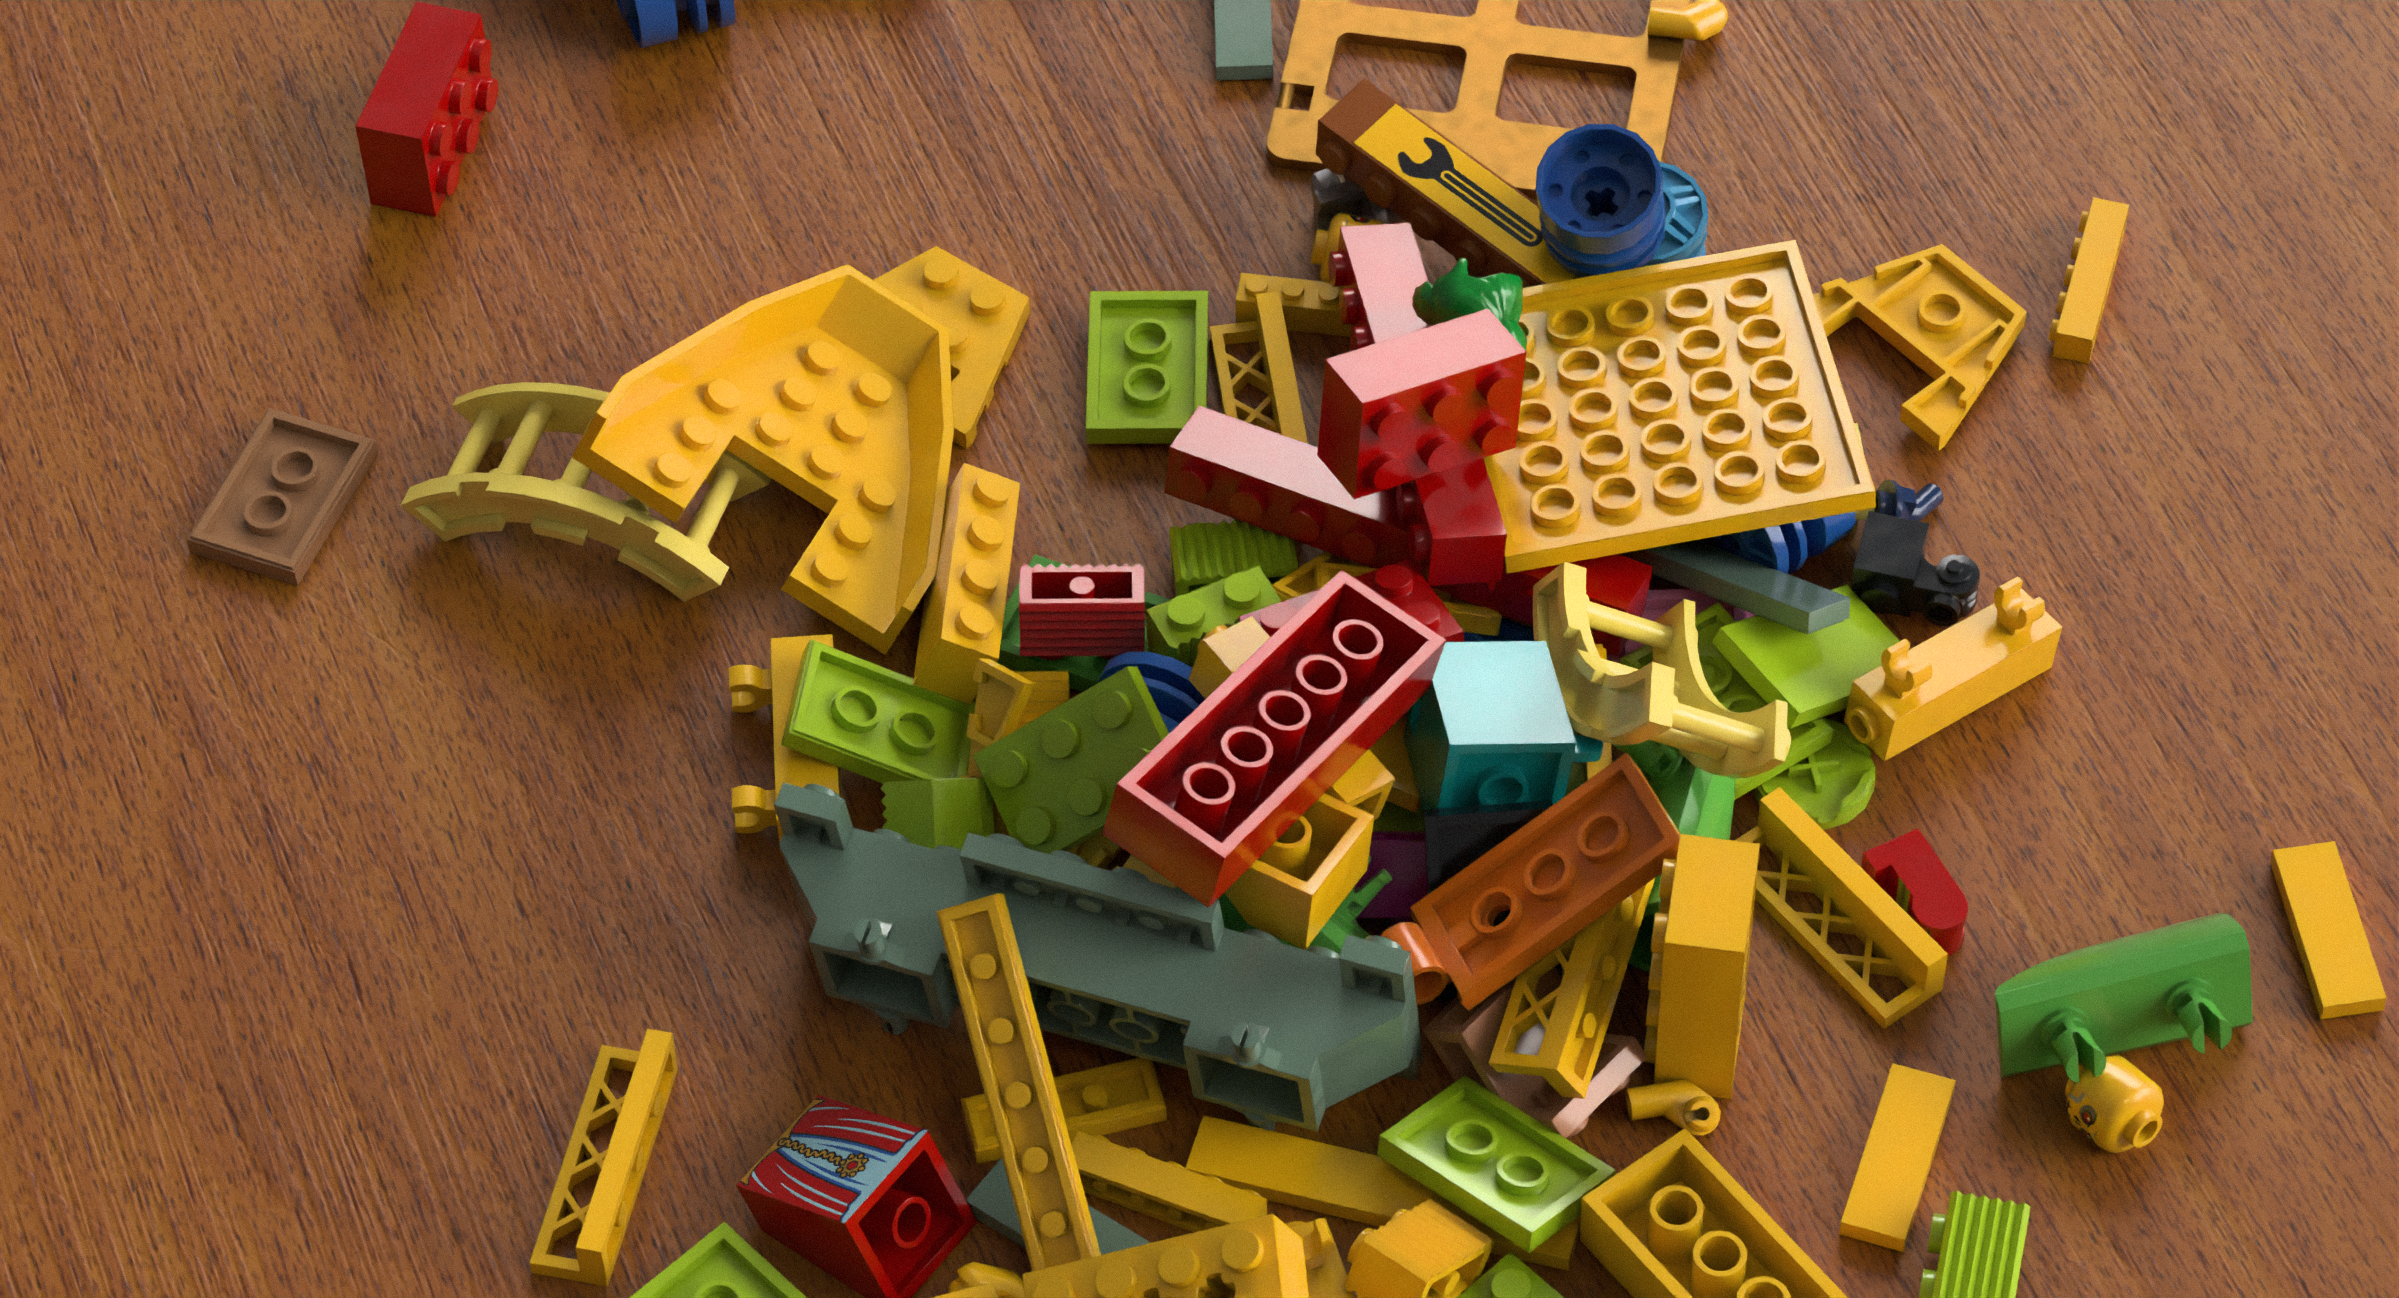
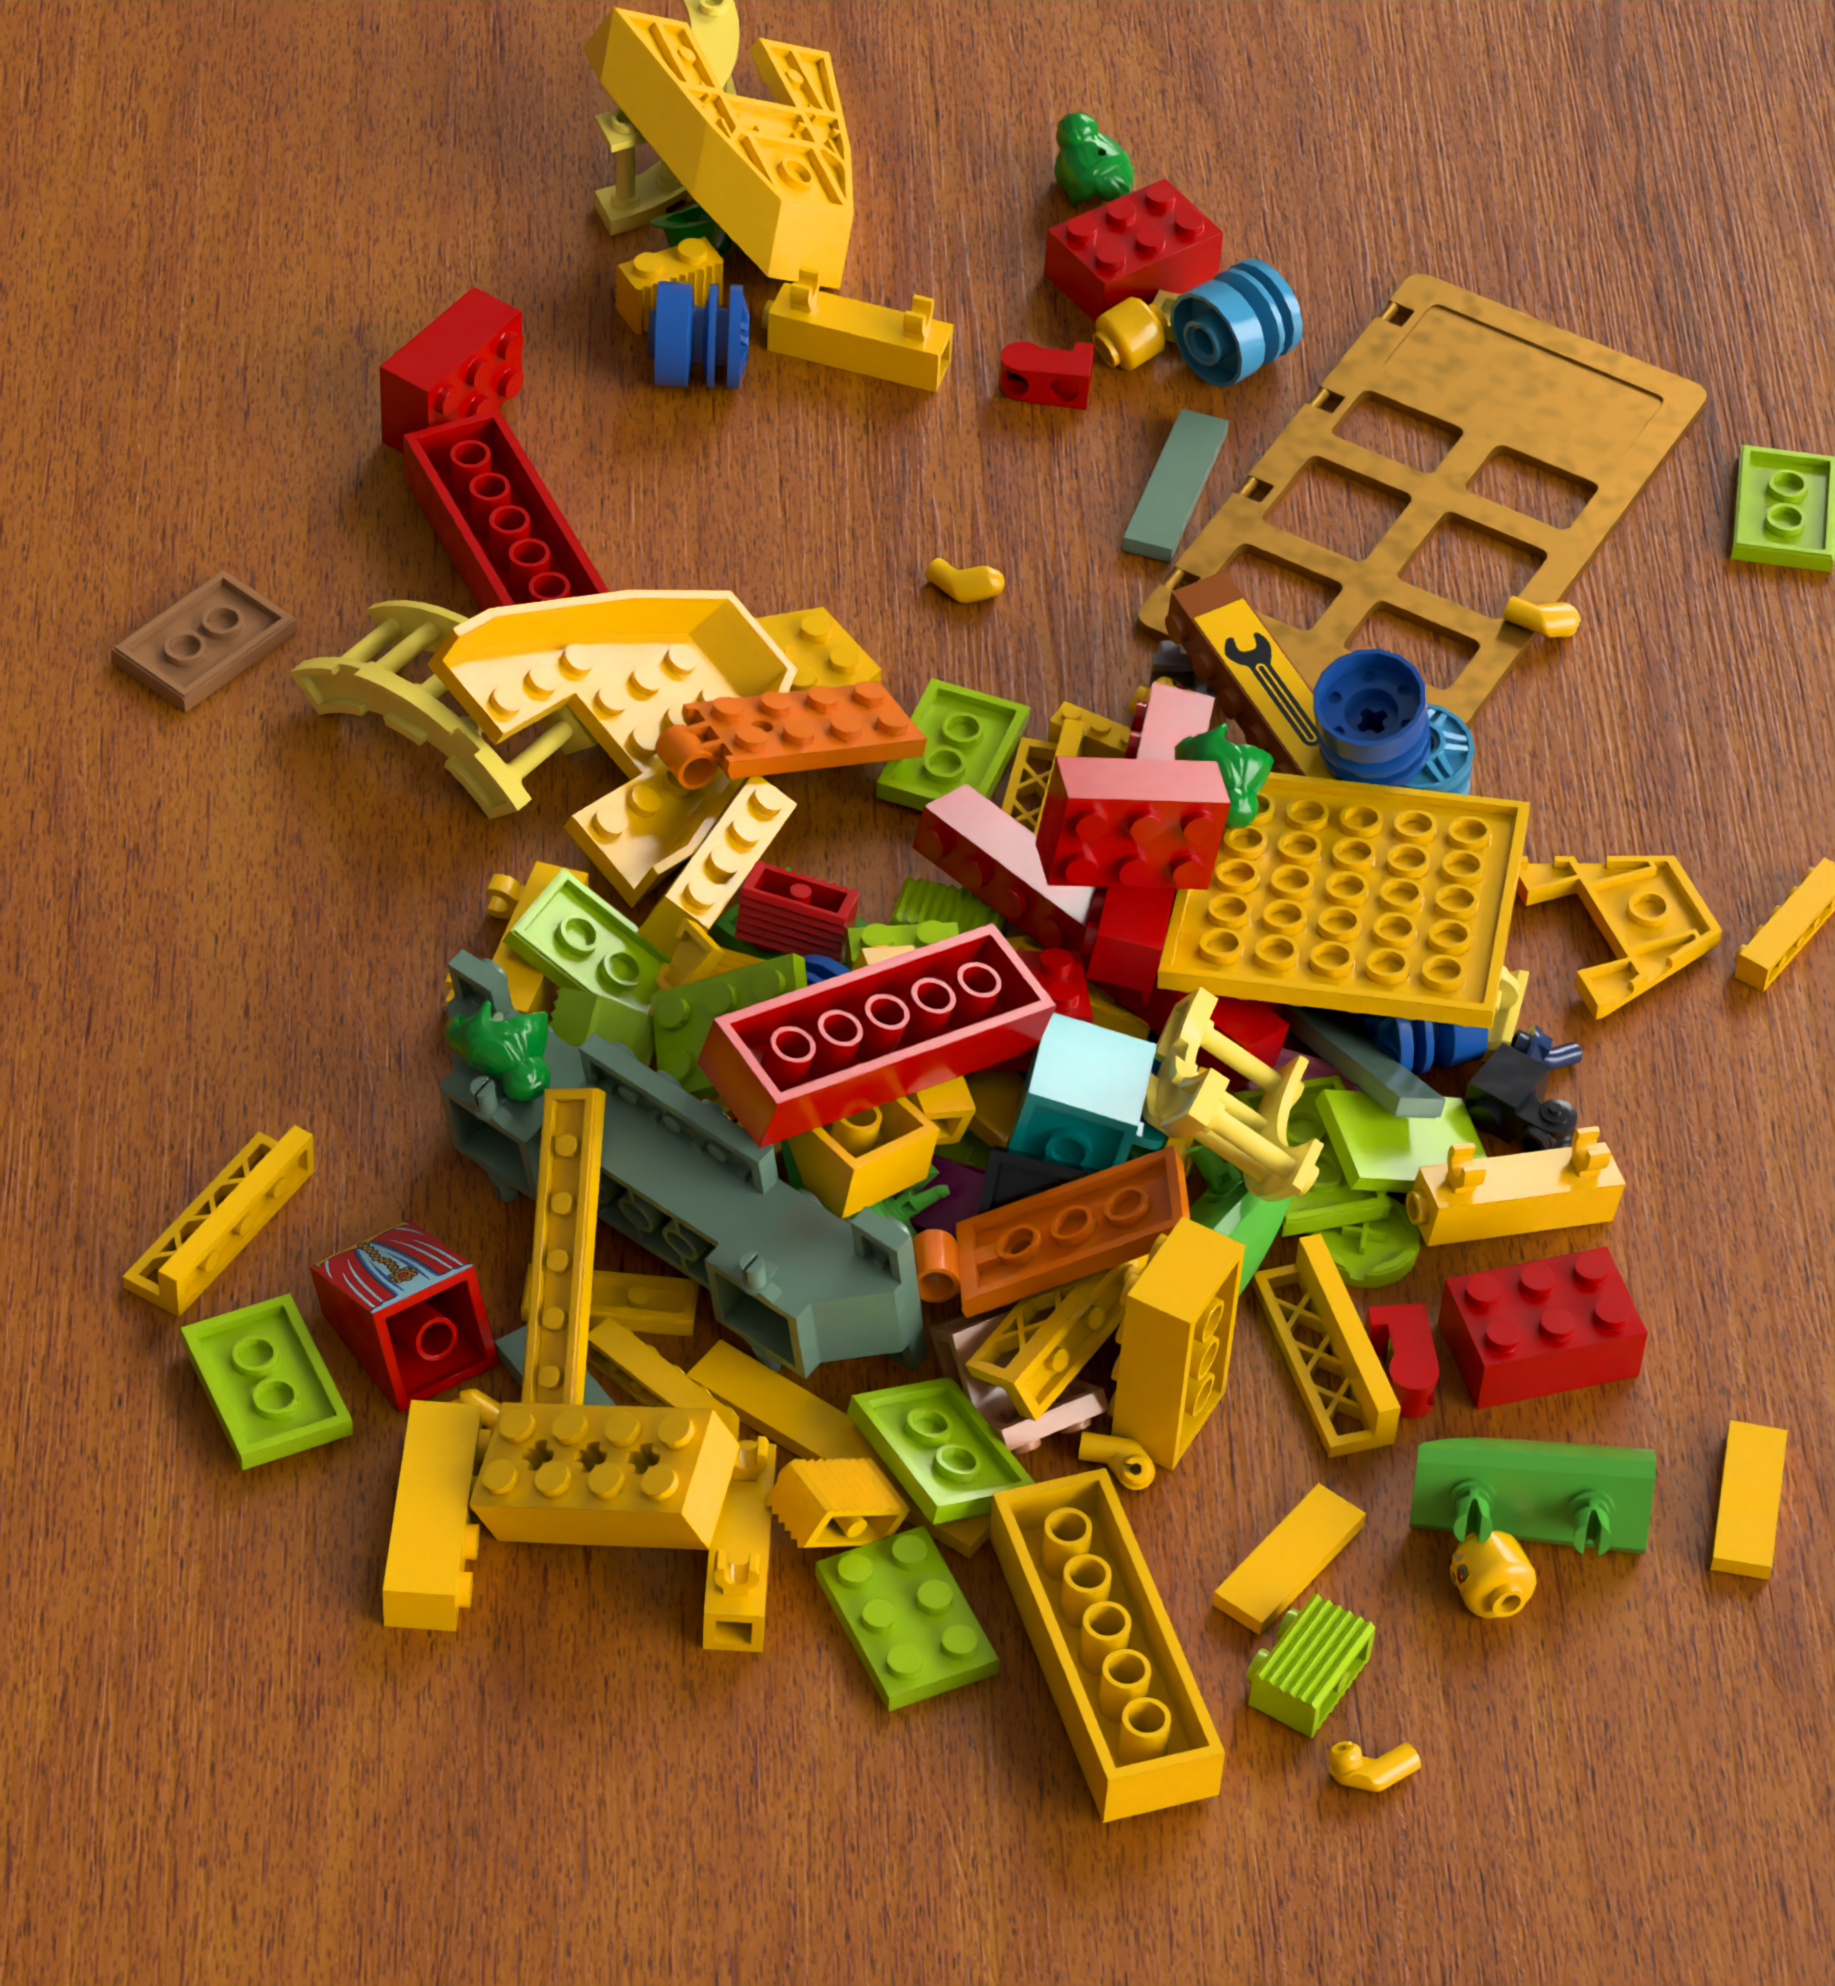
camera: 15 degrees right, 5 degrees down
(555, 263) = (495, 514): none -> red brick
(873, 883) = (504, 1049): none -> green piece
(977, 406) = (788, 733): none -> orange hinge
(1072, 172) = (967, 584): none -> yellow arm
(2043, 813) = (1542, 1327): none -> red brick

